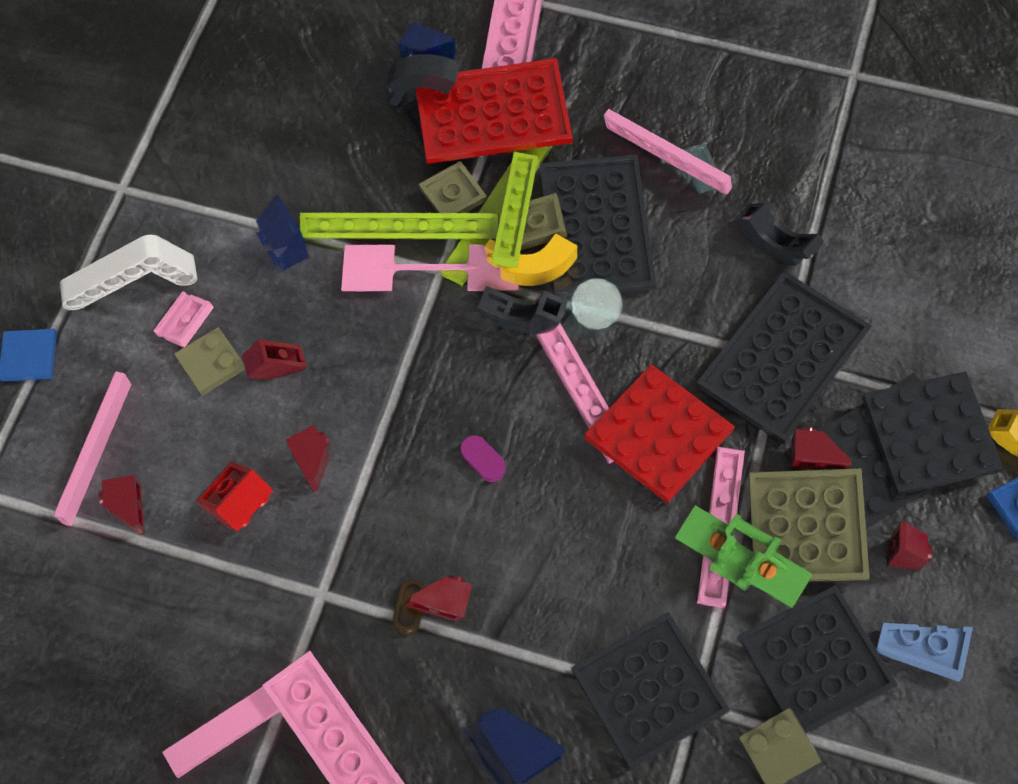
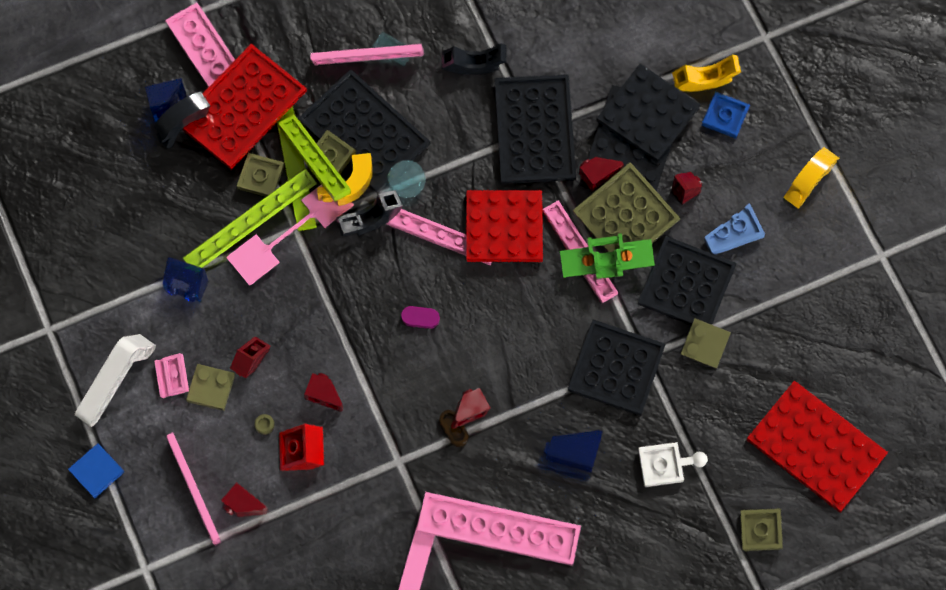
camera: 45 degrees left, 5 degrees up
(225, 441) = (264, 424): none -> olive tile

